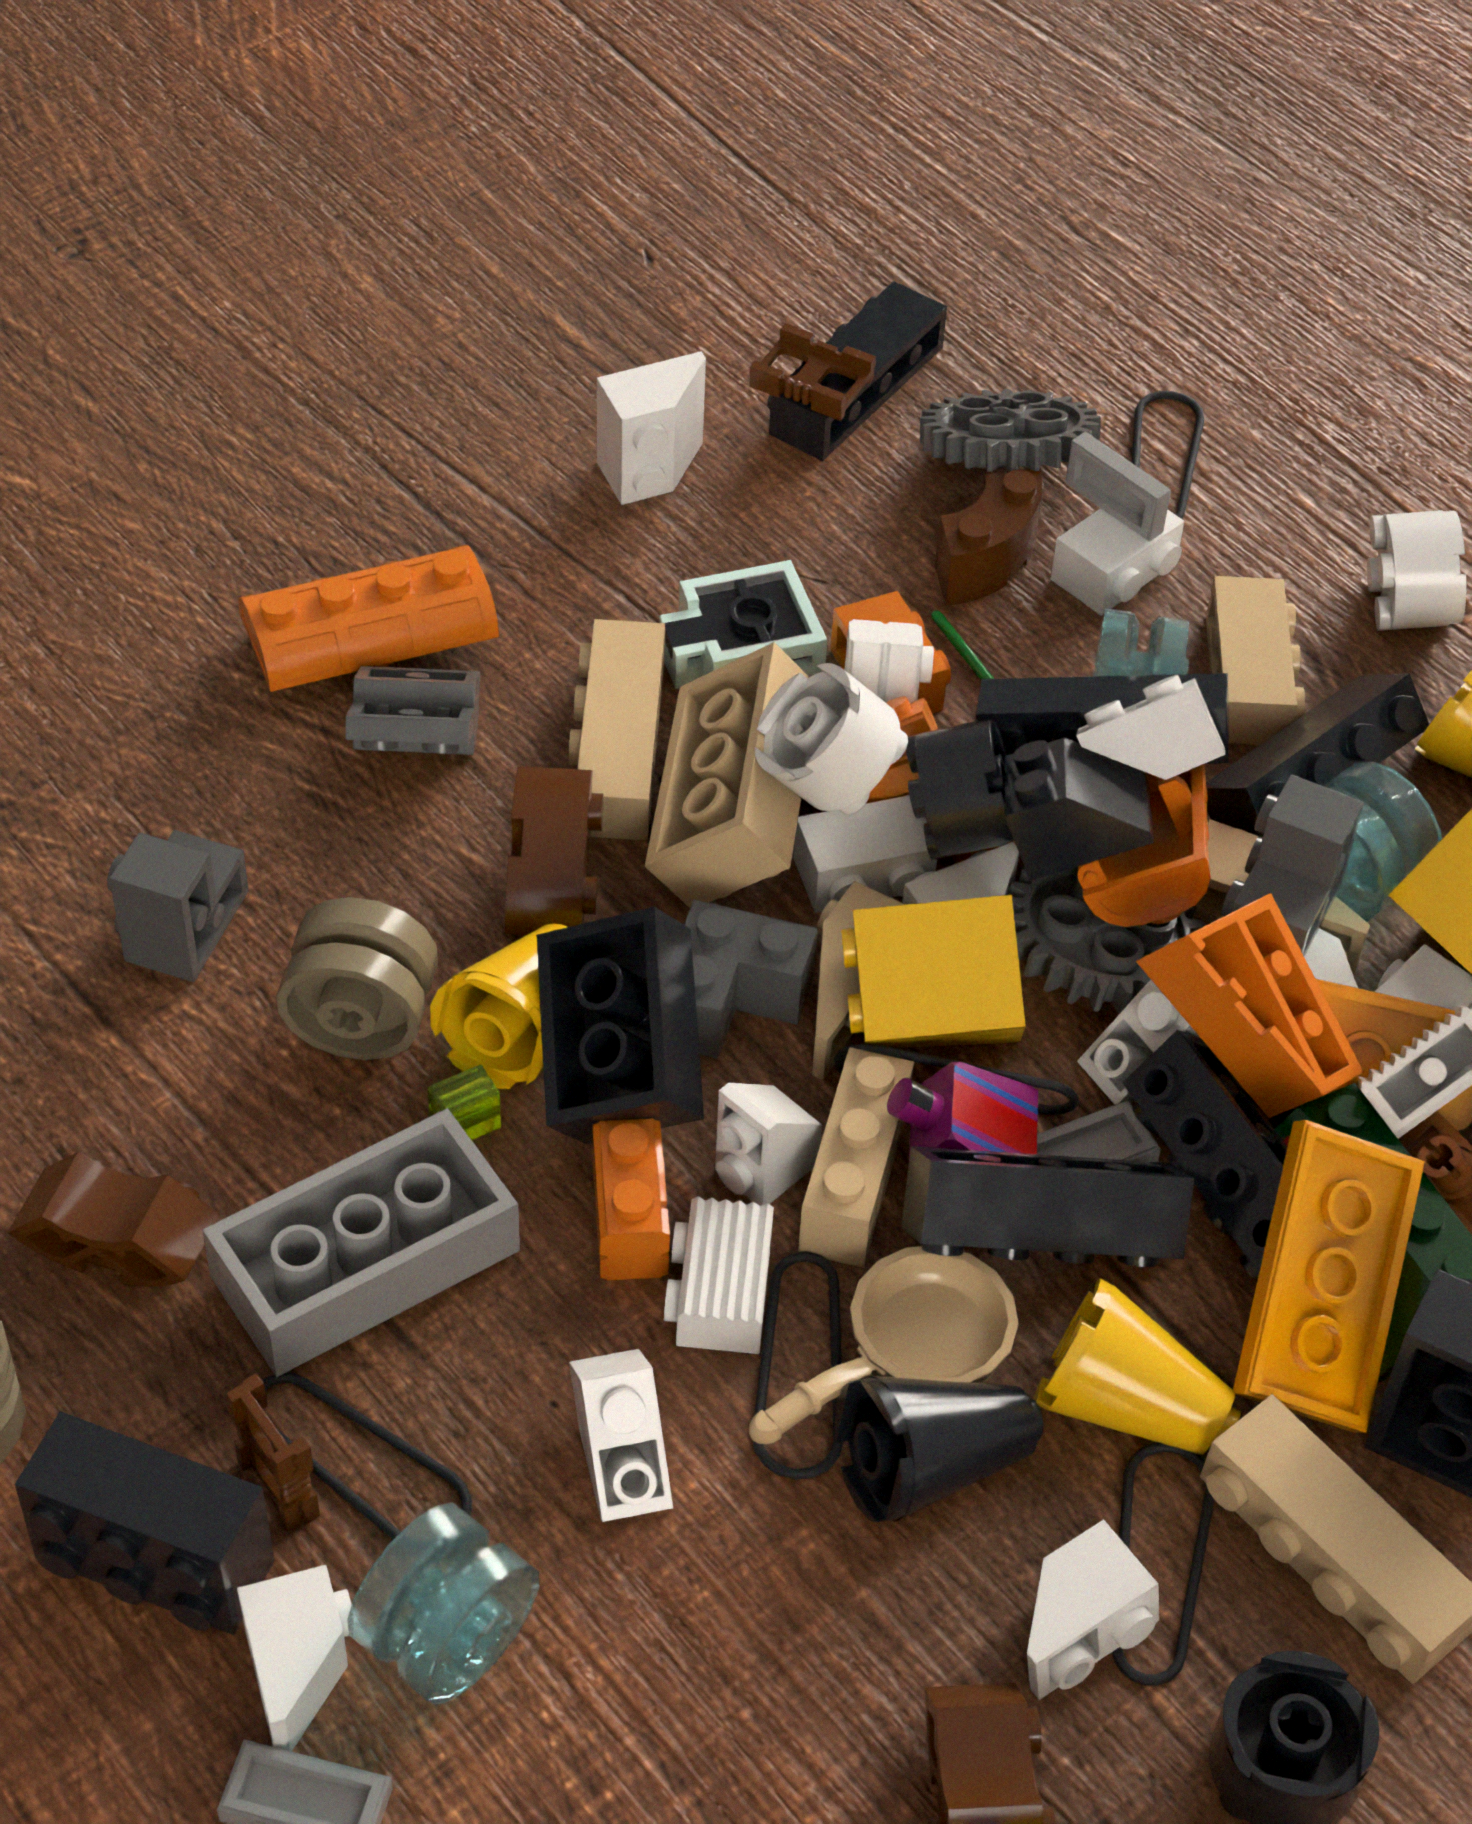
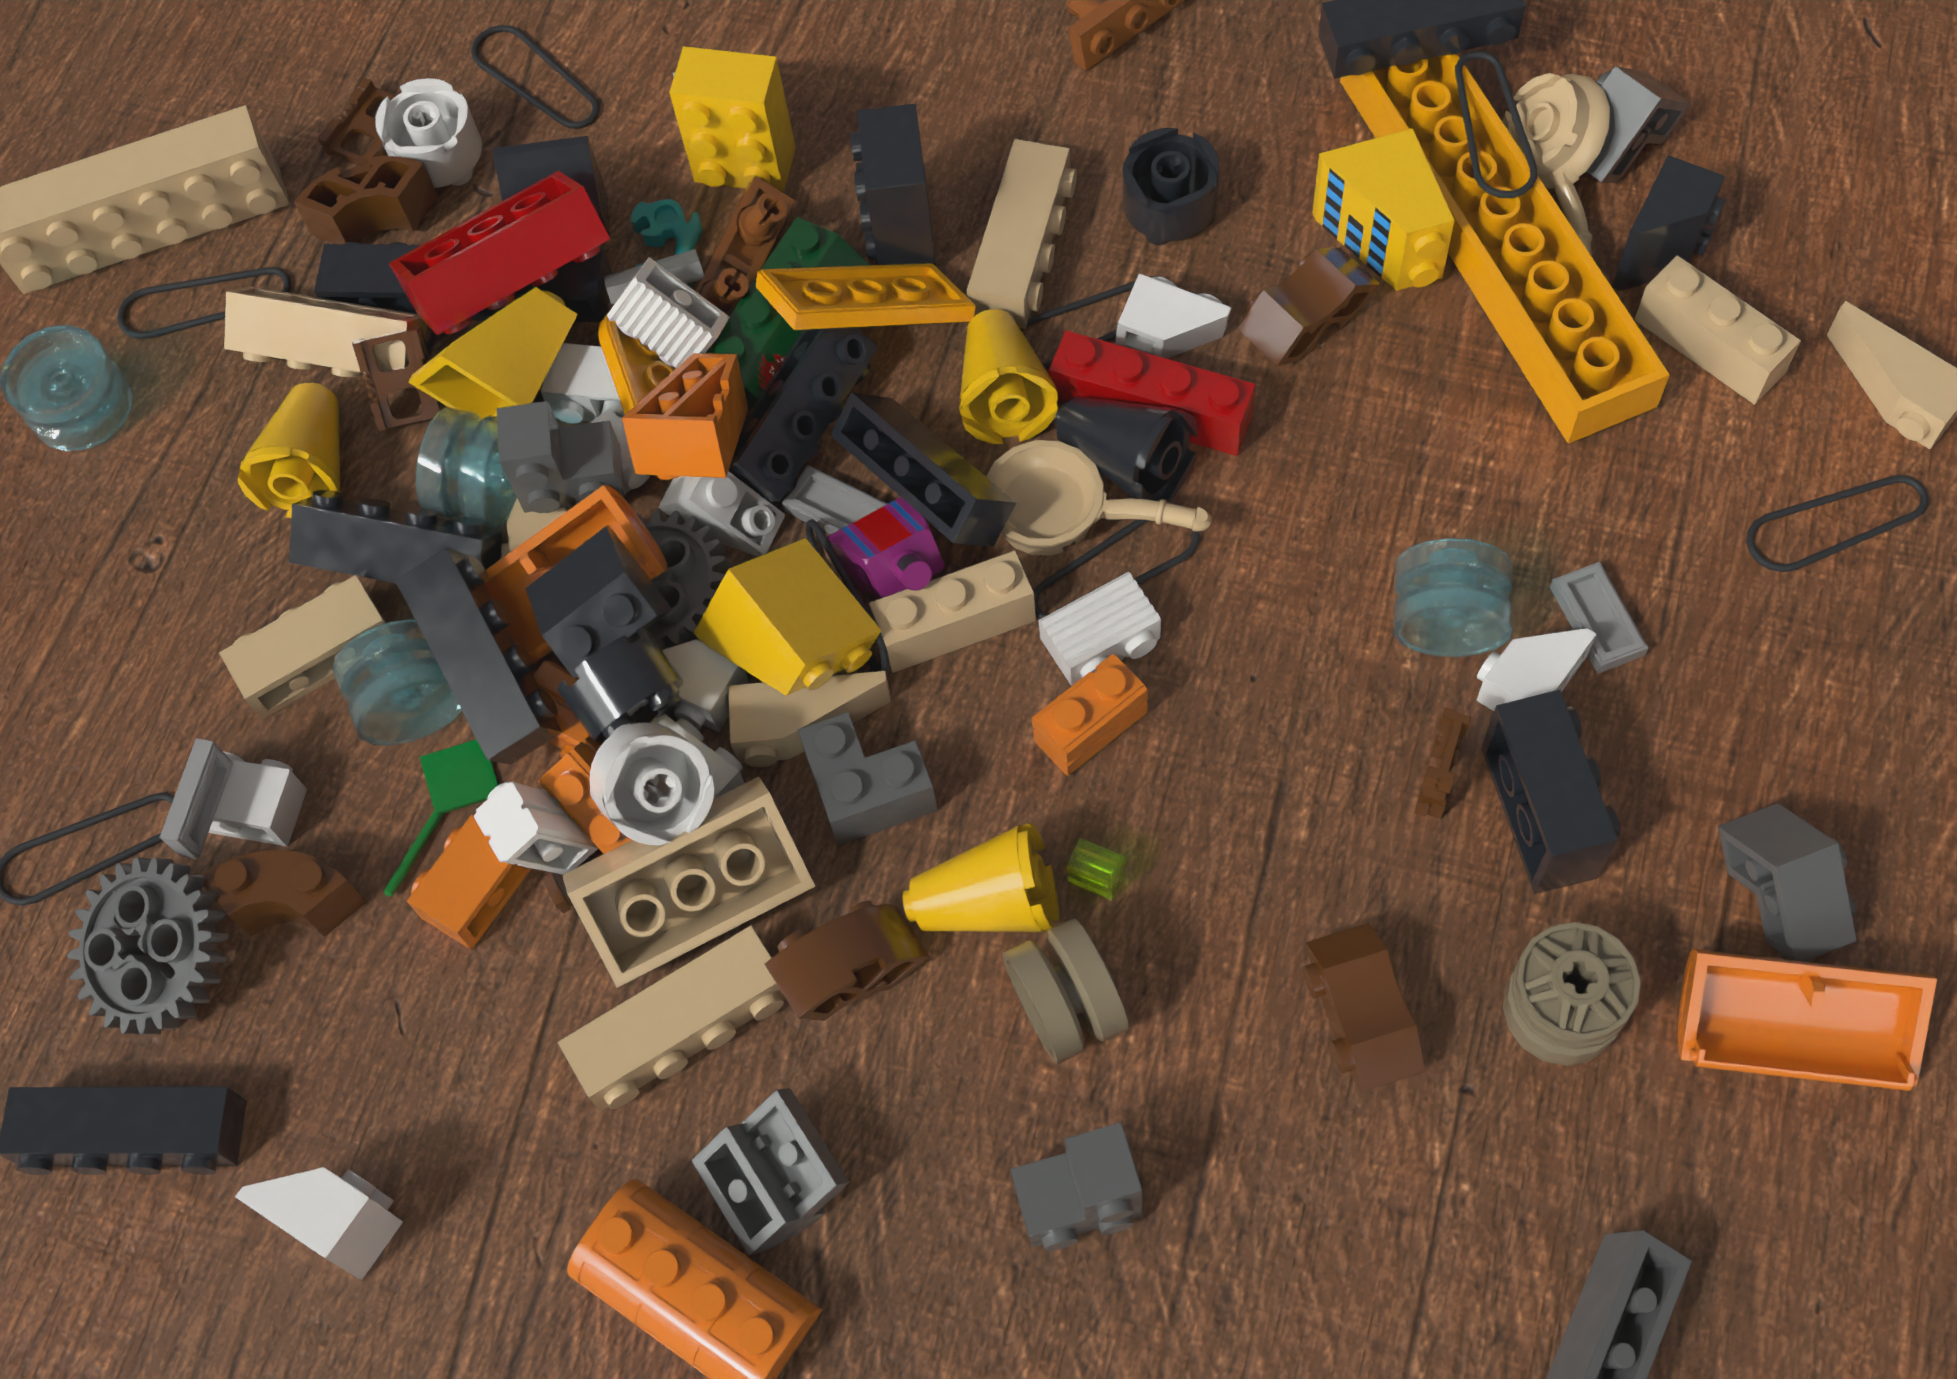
camera: 115 degrees left, 15 degrees up
(362, 1241) = (1255, 835): light grey brick -> none
(381, 1432) = (1407, 795): black piece -> none
(619, 1023) = (986, 778): black brick -> none
(621, 1434) = (1251, 610): white slope -> none
(738, 614) = (509, 999): piece -> none
(763, 1141) = (987, 662): white slope -> none
(820, 361) = (157, 1128): reddish brown piece -> none
(987, 1520) = (1118, 373): none -> red brick
(1158, 735) = (500, 580): white slope -> none
(1417, 569) = (147, 577): white brick -> none

